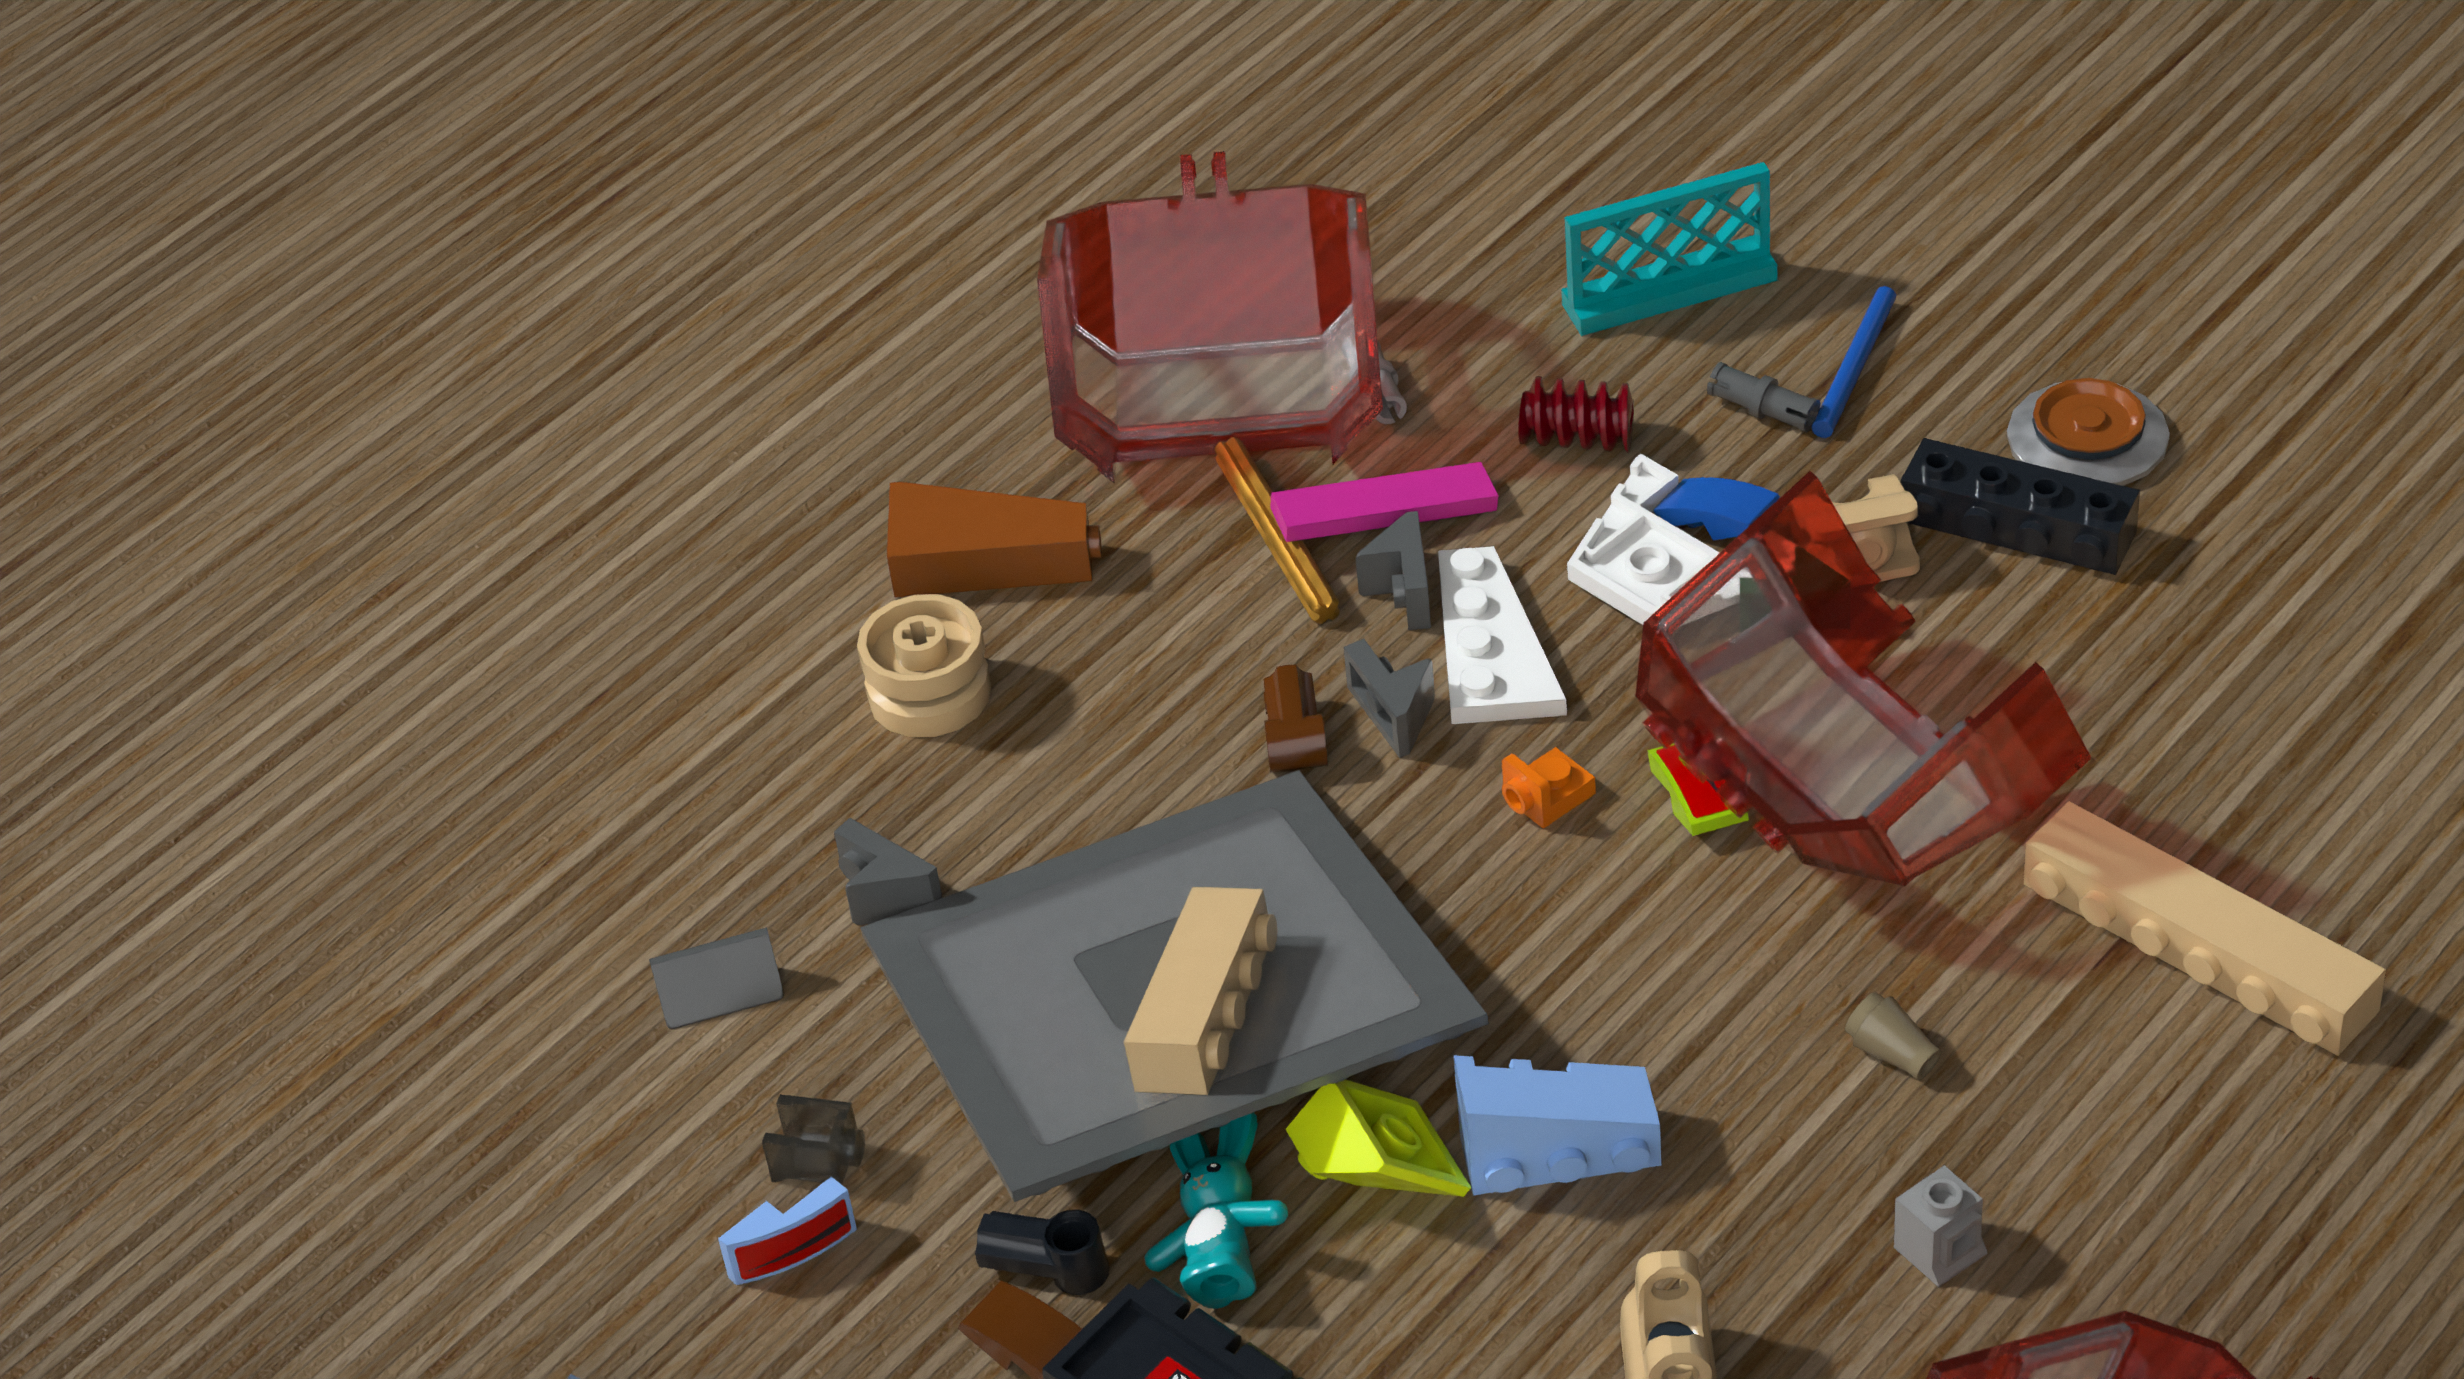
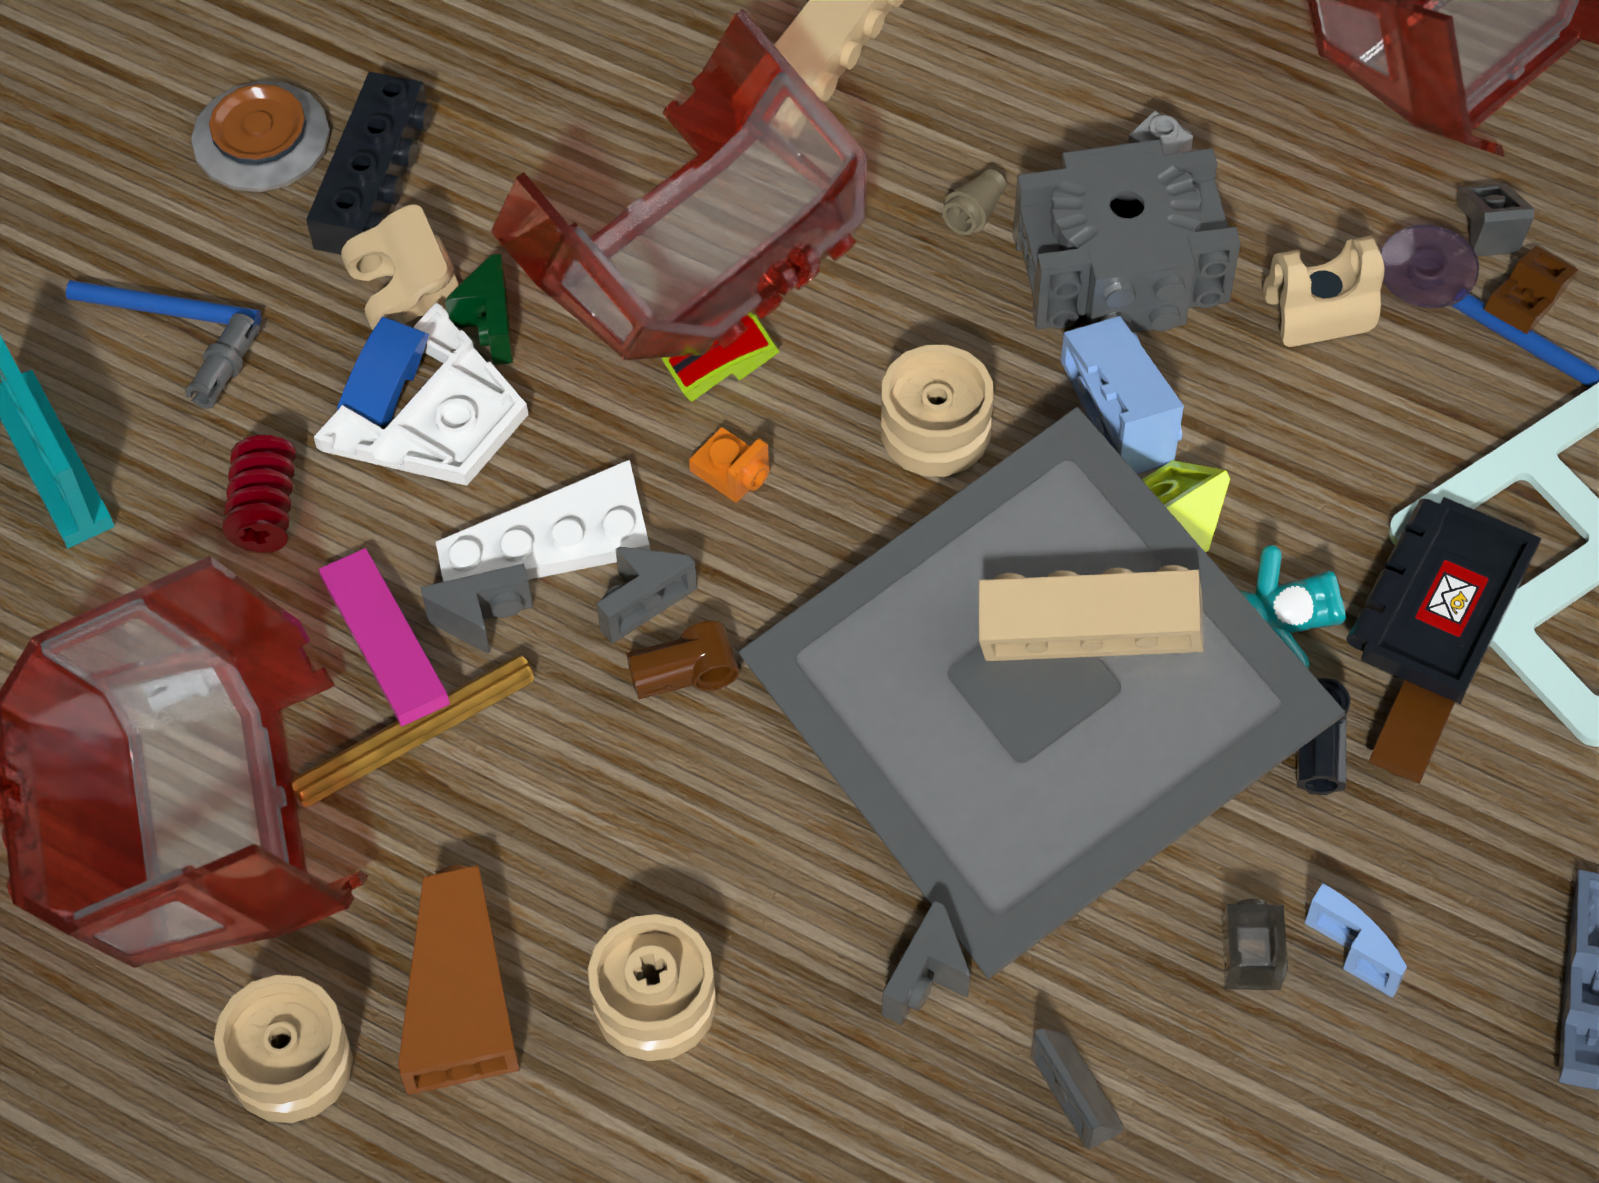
camera: 105 degrees left, 15 degrees up
(948, 418) = (283, 1048): none -> tan wheel
(1561, 945) = (936, 410): none -> tan wheel
(1778, 1147) = (1125, 237): none -> dark grey piece

